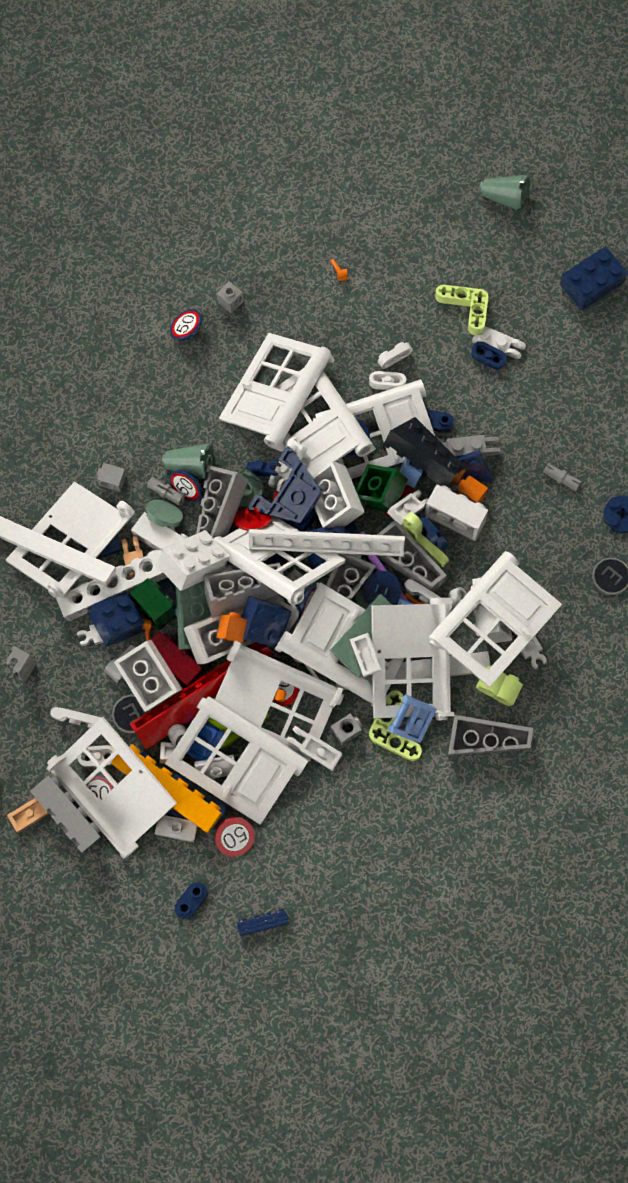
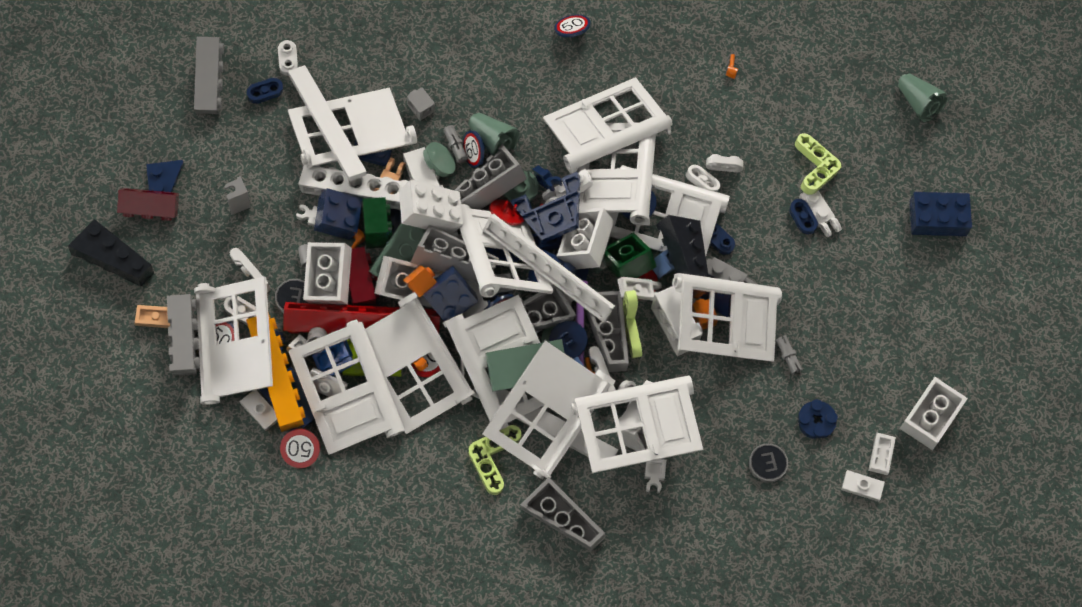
camera: 25 degrees right, 5 degrees down
(191, 900) = (228, 474): dark blue plate -> none
(230, 297) = (624, 28): light grey brick -> none
(262, 923) = (269, 531): dark blue piece -> none
(316, 749) = (417, 426): white hinge -> none
(344, 737) = (449, 422): light grey brick -> none
(366, 654) = (511, 376): white plate -> none
(417, 722) = (515, 463): medium blue plate -> none
(433, 533) = (645, 324): dark blue plate -> none
(504, 689) = (606, 485): yellowish green brick -> none
(512, 467) = (750, 318): none -> white door

